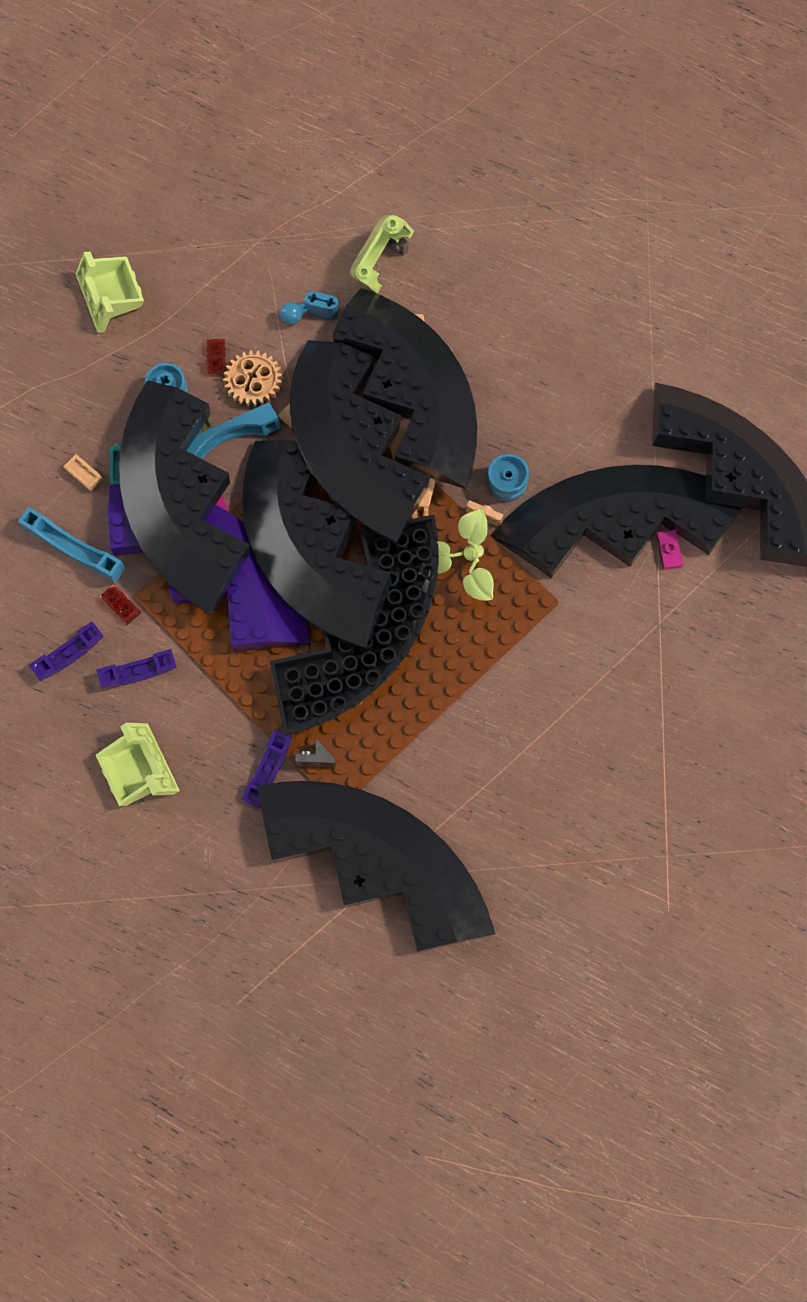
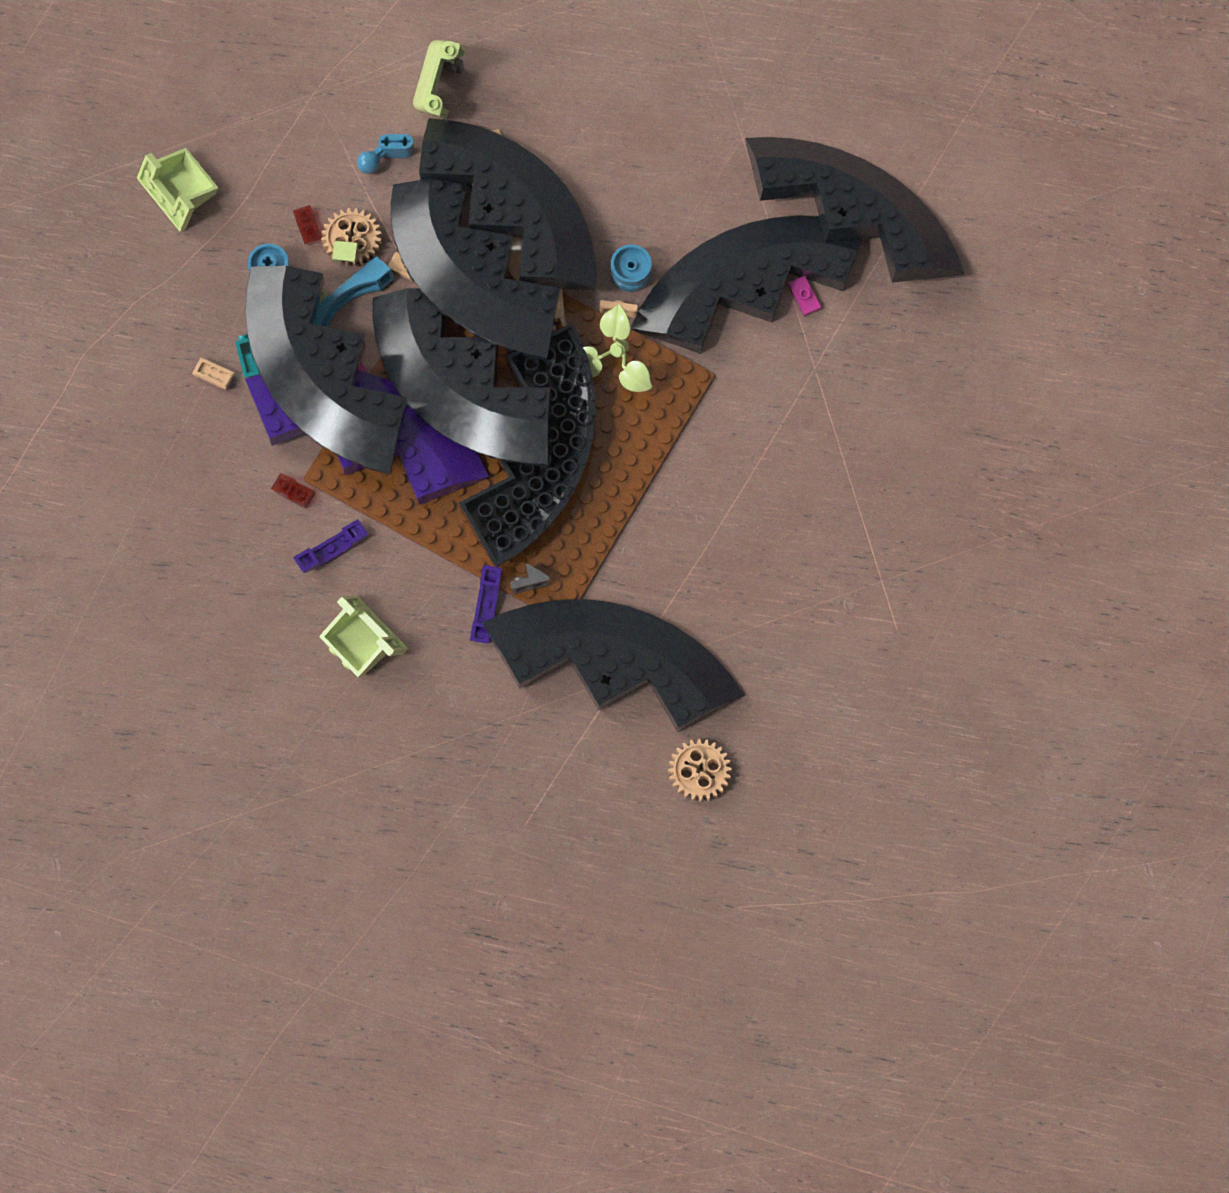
camera: 20 degrees left, 0 degrees up
(67, 653) = (258, 549): dark purple slope -> none
(90, 557) = (254, 454): dark azure arch -> none
(239, 389) = (344, 251): none -> yellowish green panel
(440, 987) = (691, 785): none -> light nougat gear

